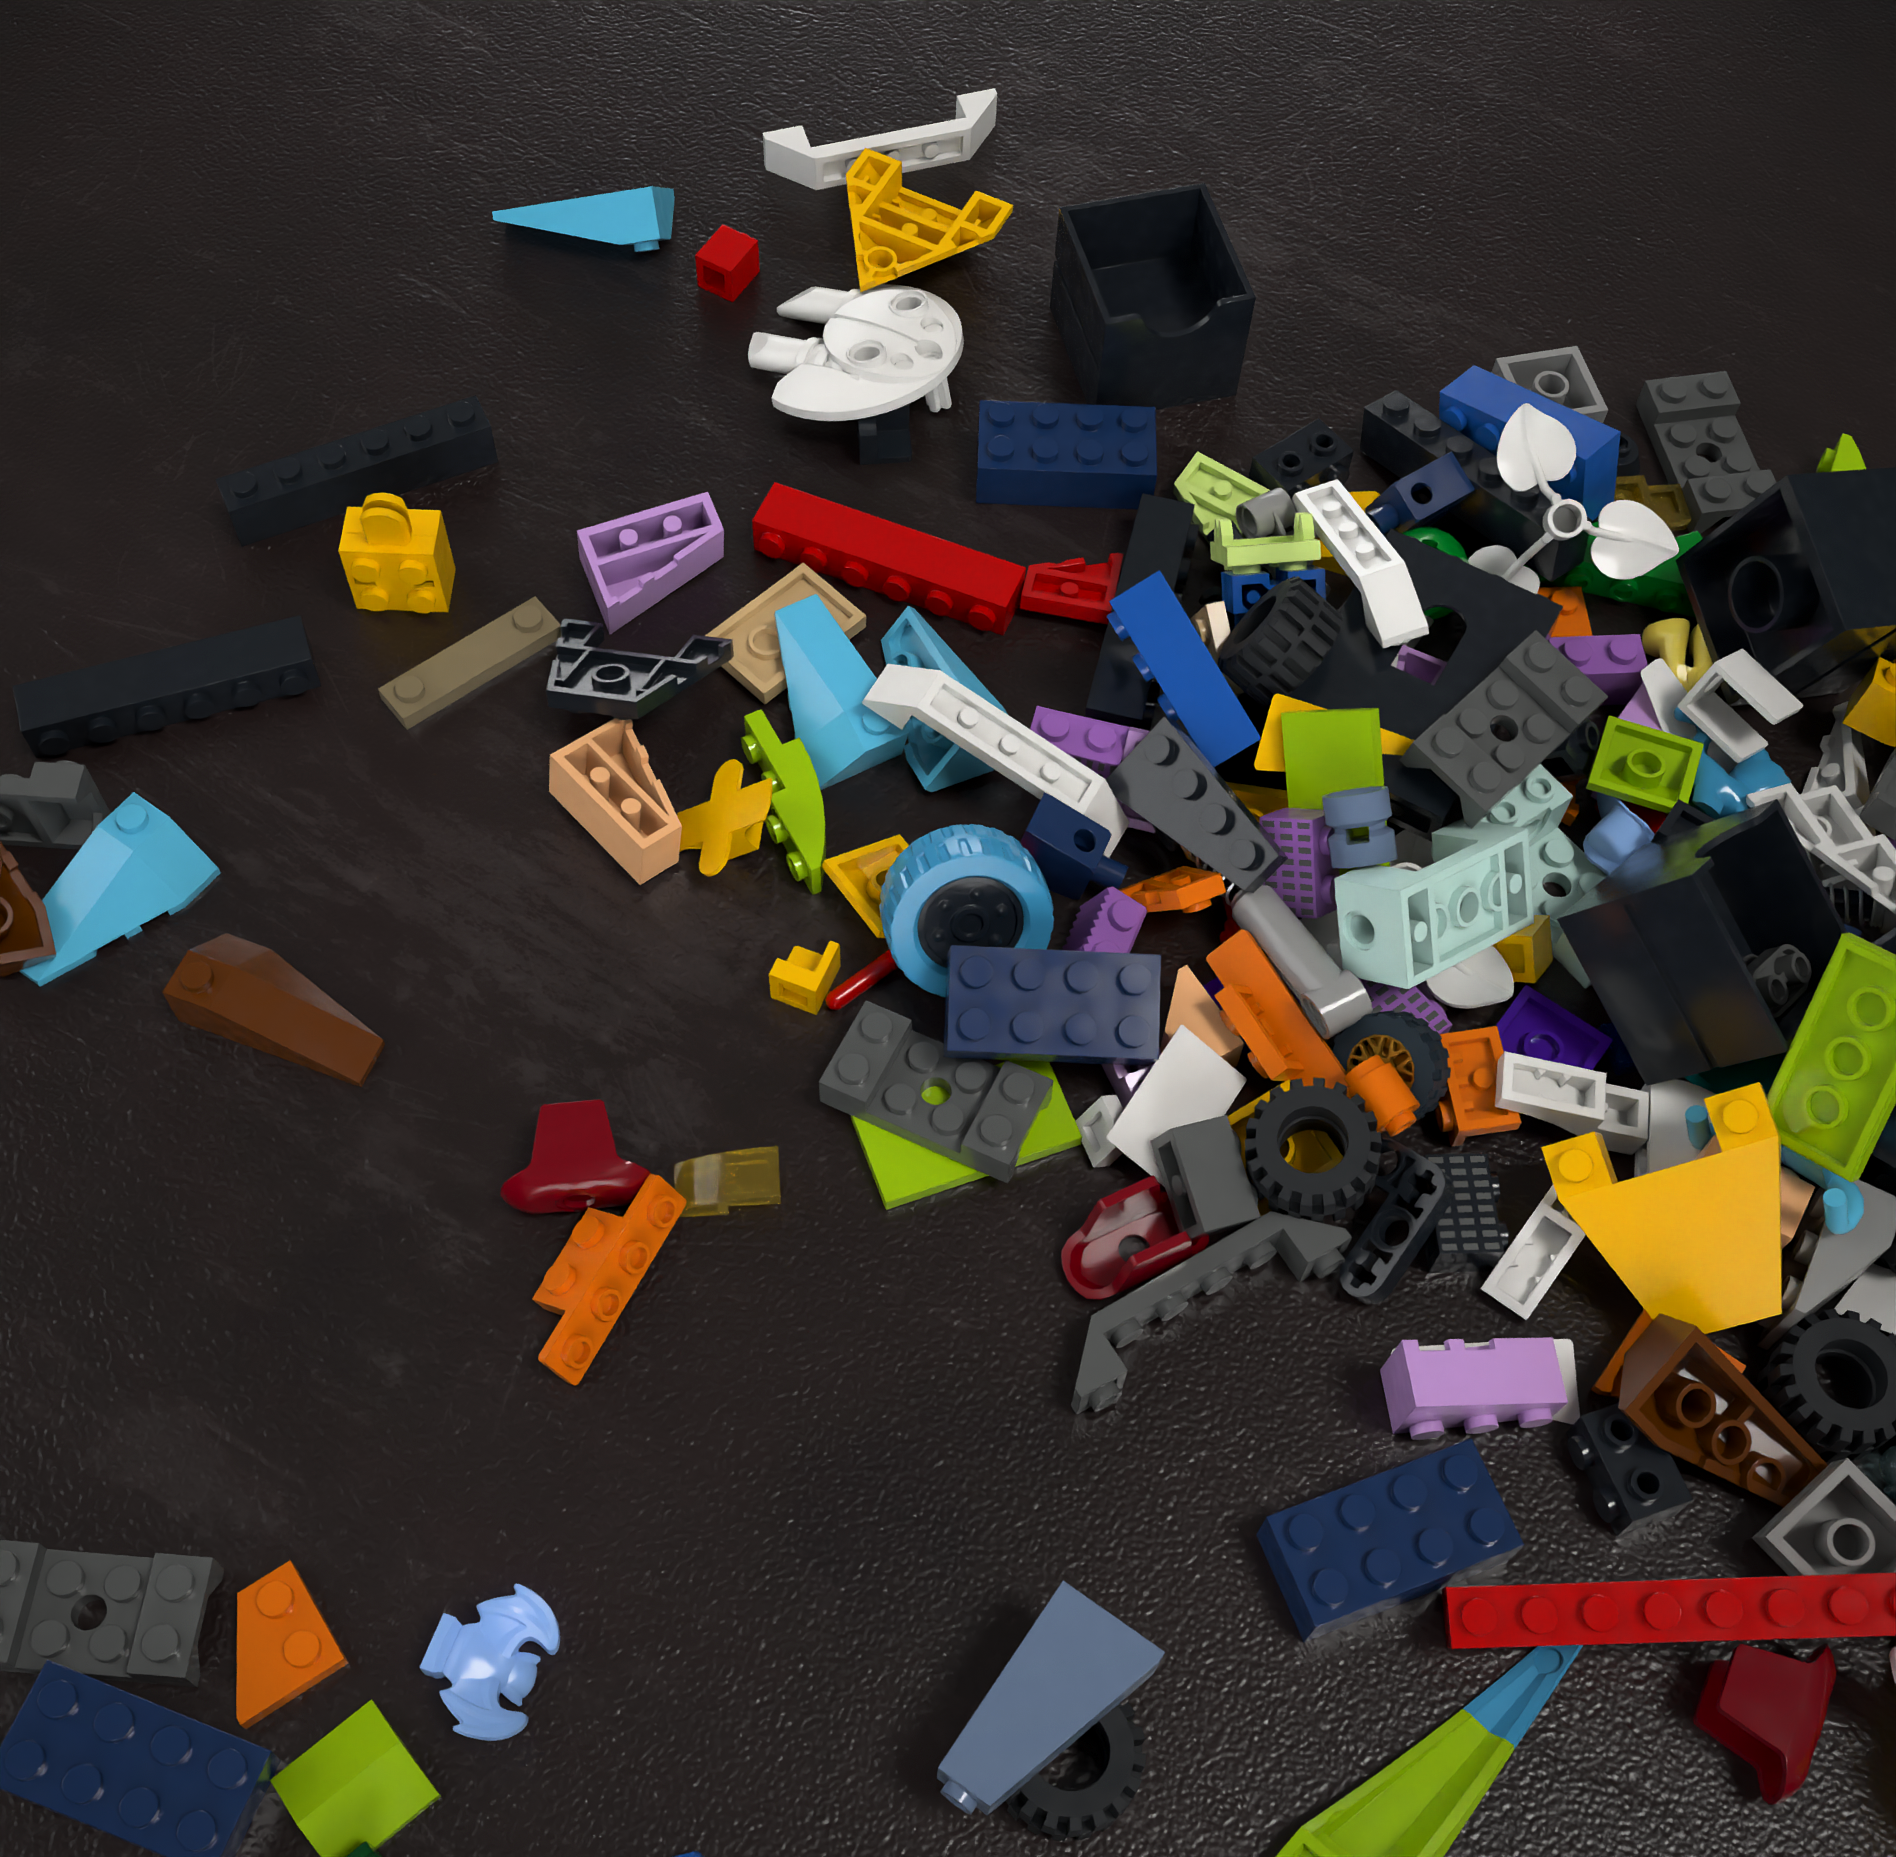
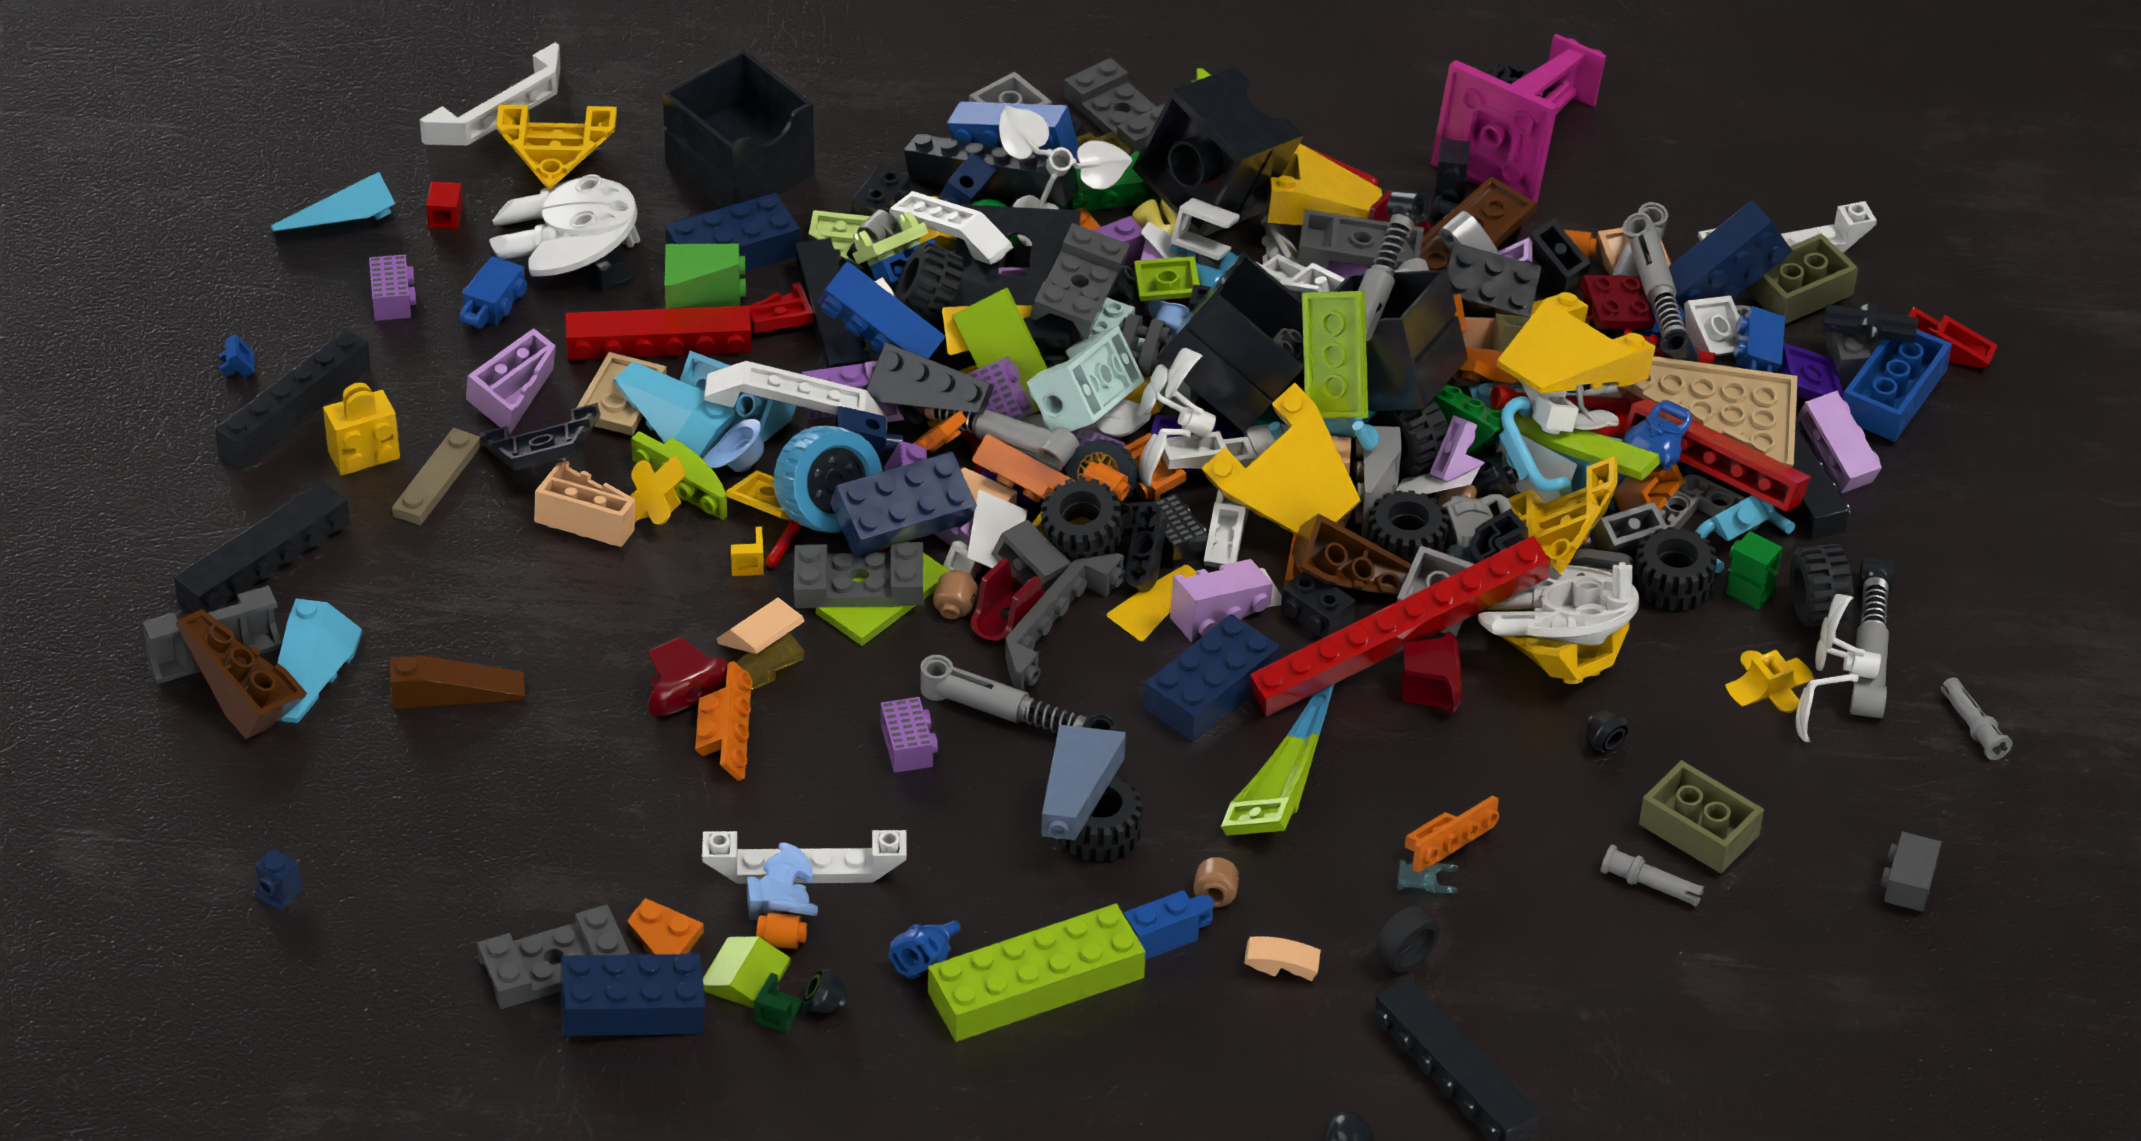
camera: 25 degrees left, 15 degrees down
(336, 382) = (237, 358): none -> blue tile
(435, 1743) = (782, 930): none -> orange brick
(587, 354) = (391, 287): none -> medium lavender brick
(590, 1620) = (828, 865): none -> white slope
(707, 413) = (492, 292): none -> blue brick
(745, 1123) = (762, 627): none -> light nougat slope
(854, 1425) = (908, 734): none -> medium lavender brick
(884, 792) = (738, 447): none -> light blue piece
(983, 500) = (703, 275): none -> bright green slope
(1050, 1447) = (943, 681): none -> light grey piece
(1064, 1185) = (955, 594): none -> medium nougat head
(1352, 1336) = (1147, 609): none -> yellow sticker
(1358, 809) = (1020, 344): sand blue wheel -> none
(1566, 1043) = (1191, 418): none -> white plant
(1584, 857) = (1155, 337): none -> dark grey brick

